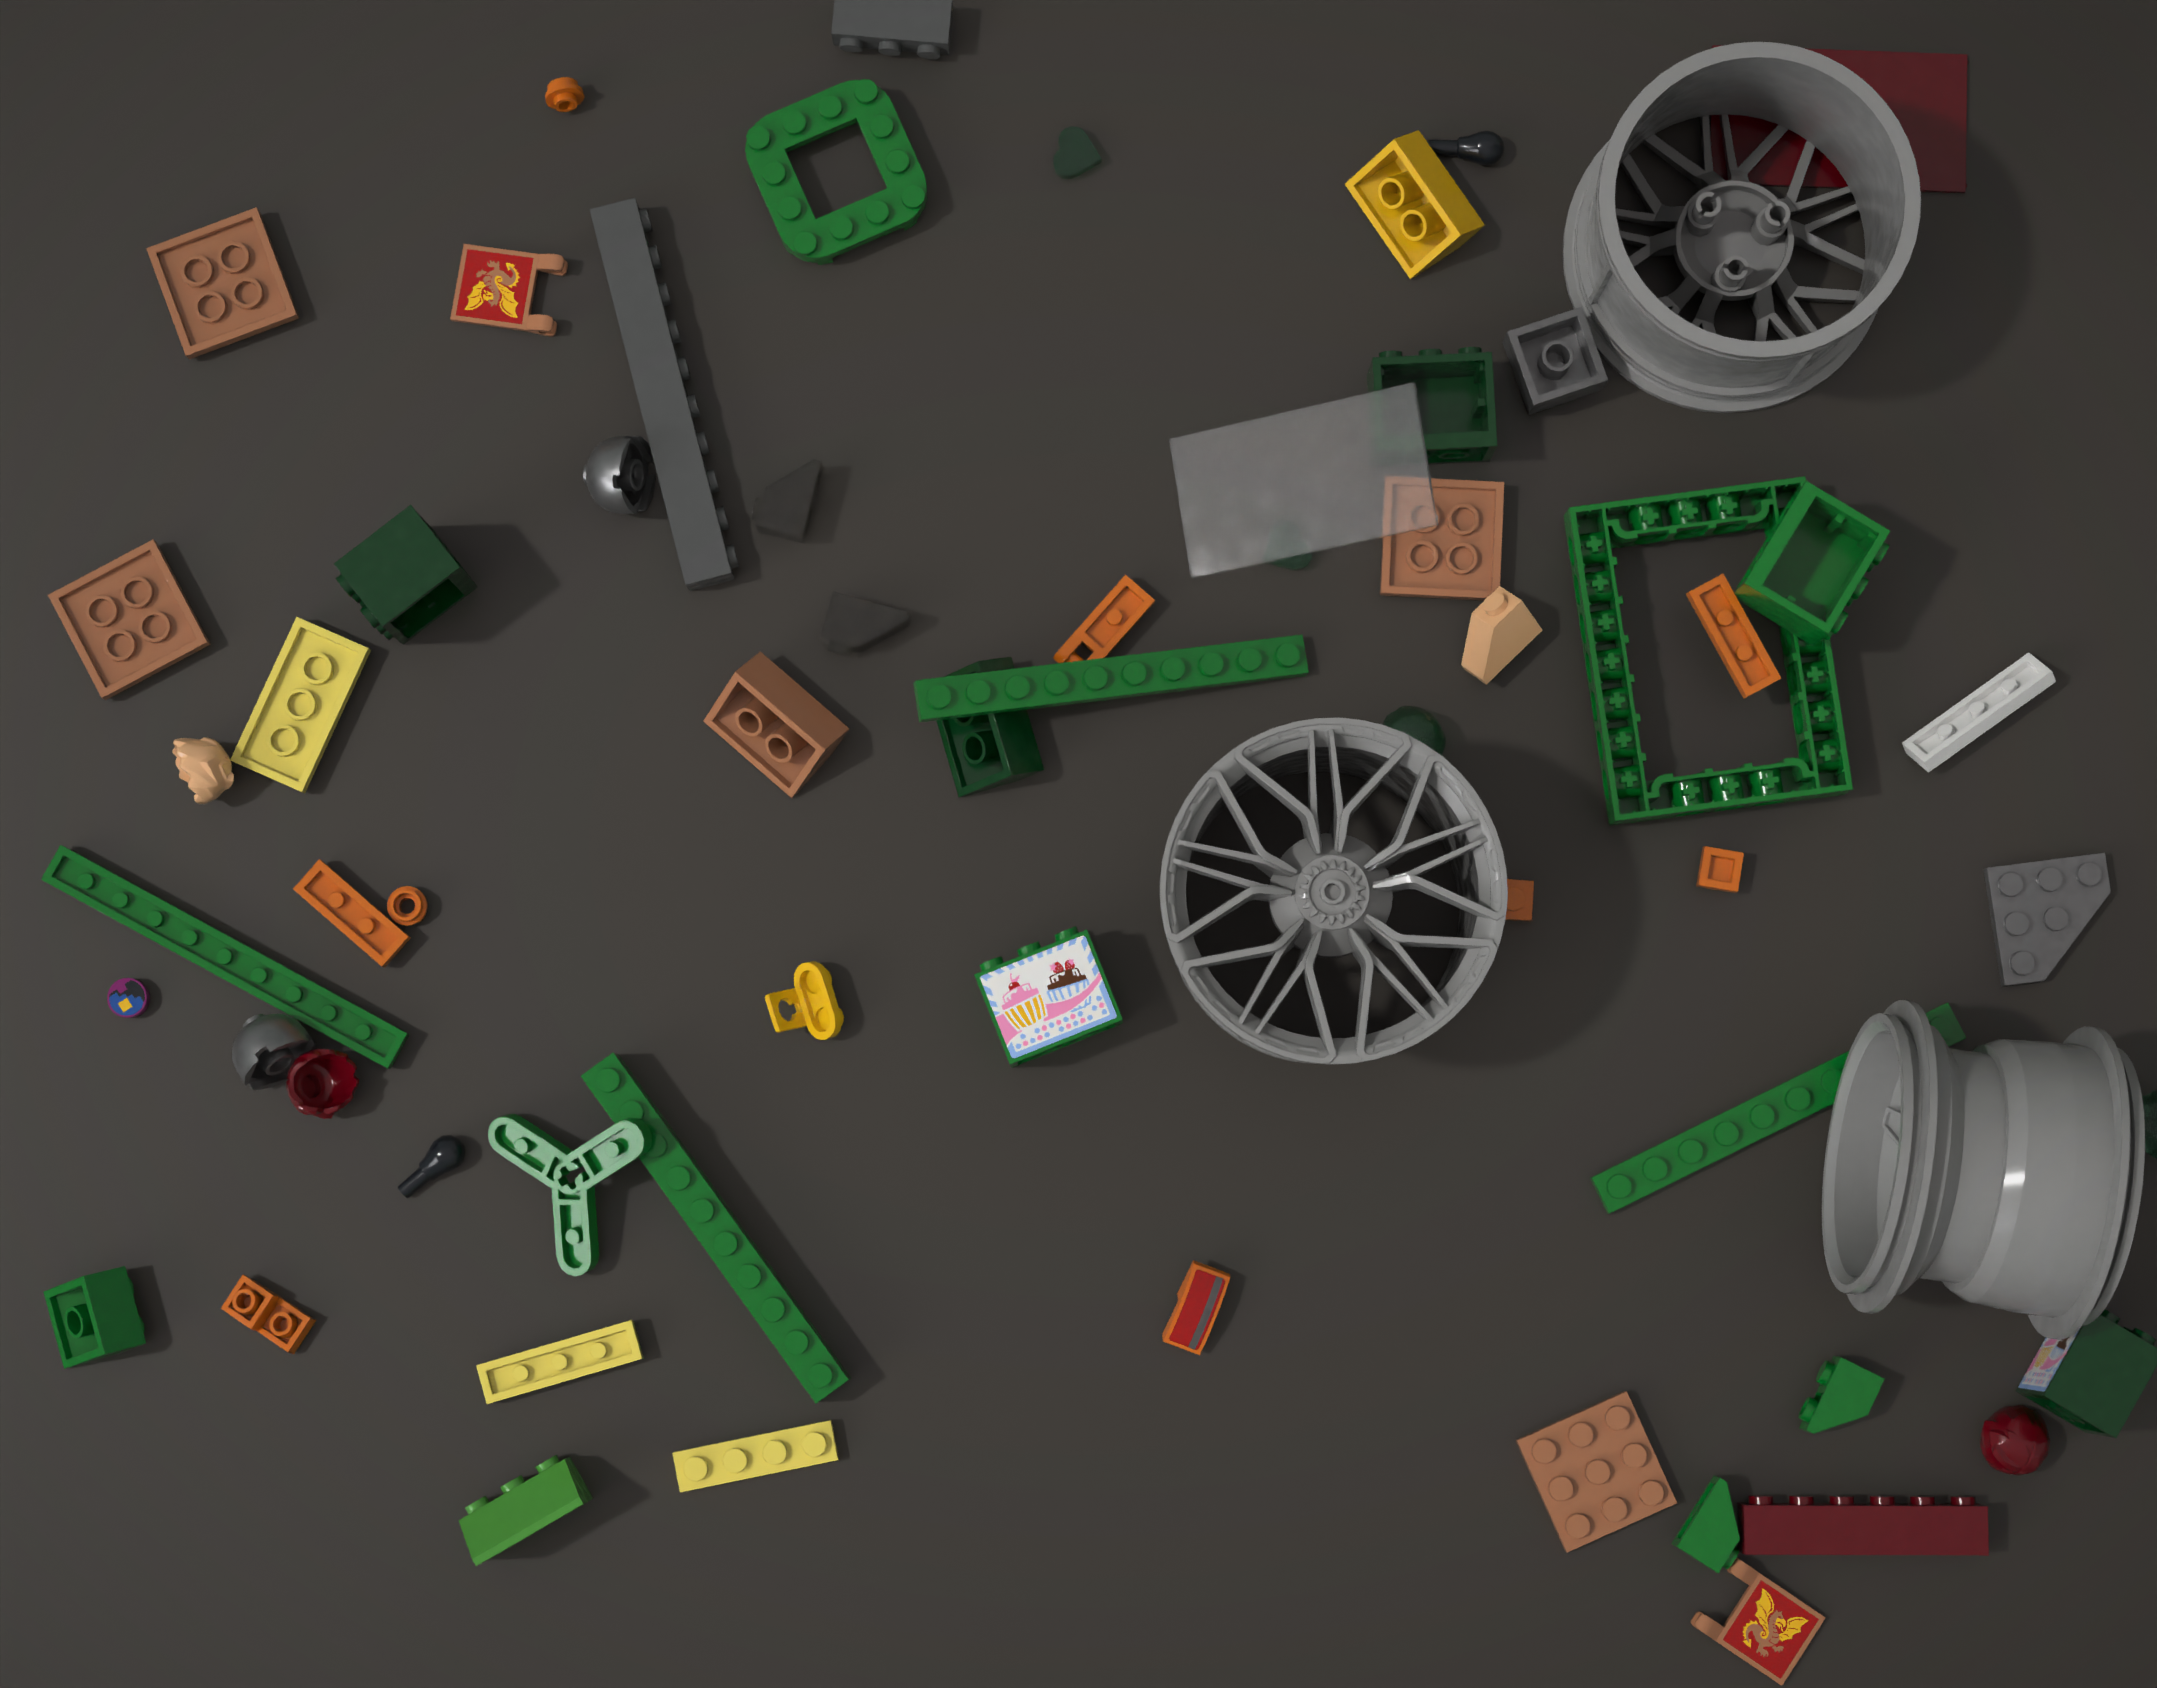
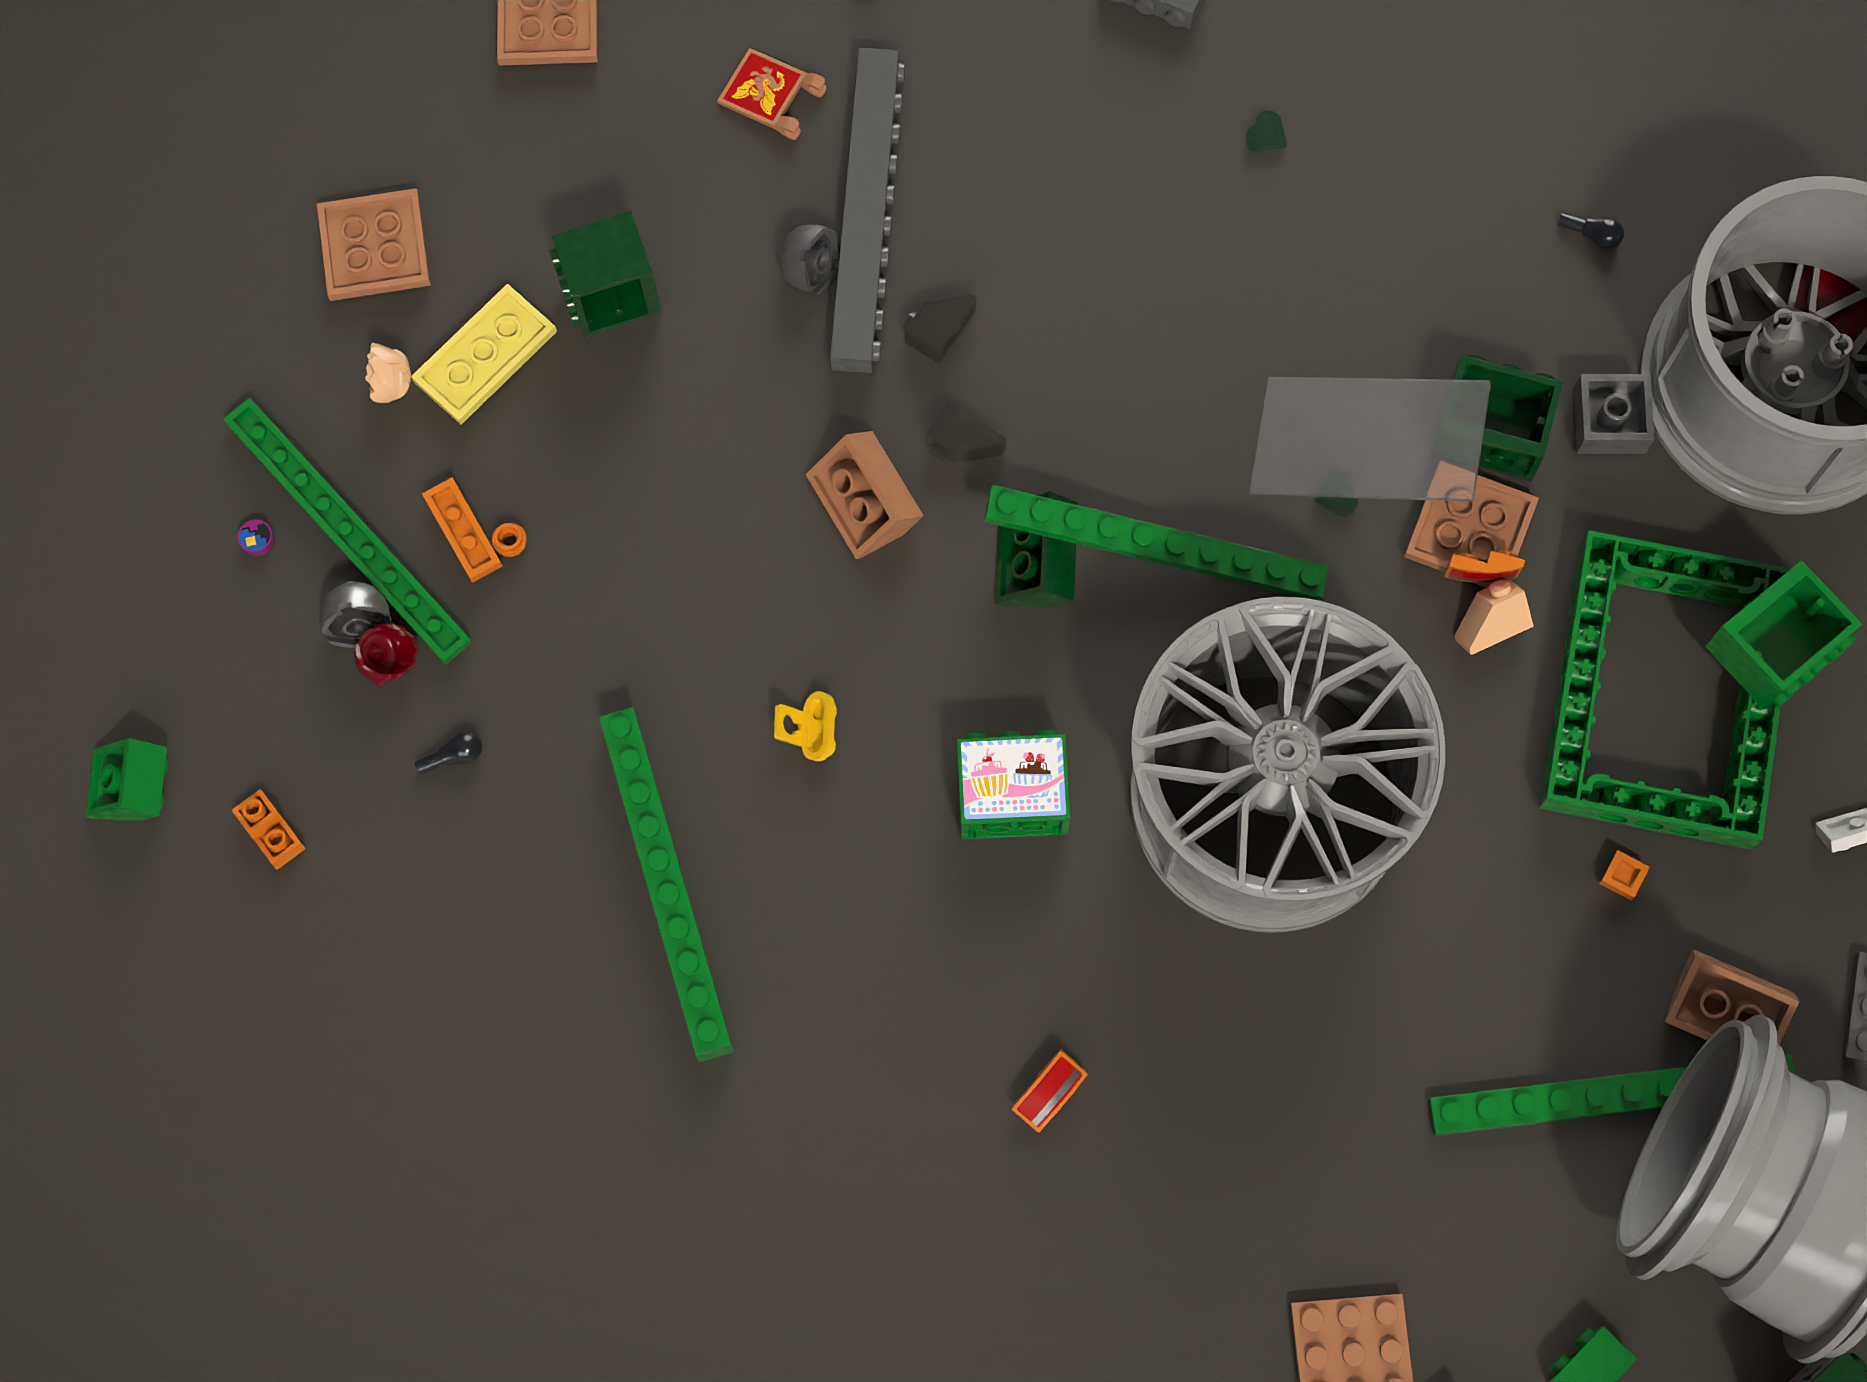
camera: 20 degrees right, 10 degrees down
(523, 1508) = (417, 1062): bright green slope -> none
(559, 1361) = (494, 950): light yellow plate -> none
(572, 1201) = (556, 820): piece -> none
(755, 1456) = (629, 1088): light yellow plate -> none
(858, 222) = (1074, 127): green plate -> none
(1108, 622) = (1171, 501): orange plate -> none
(1414, 203) = (1534, 256): yellow slope -> none
(1482, 580) = (1497, 567): none -> orange slope
(1520, 900) = (1436, 842): orange plate -> none
(1733, 636) = (1697, 678): orange plate -> none
(1867, 971) = (1716, 993): none -> nougat slope

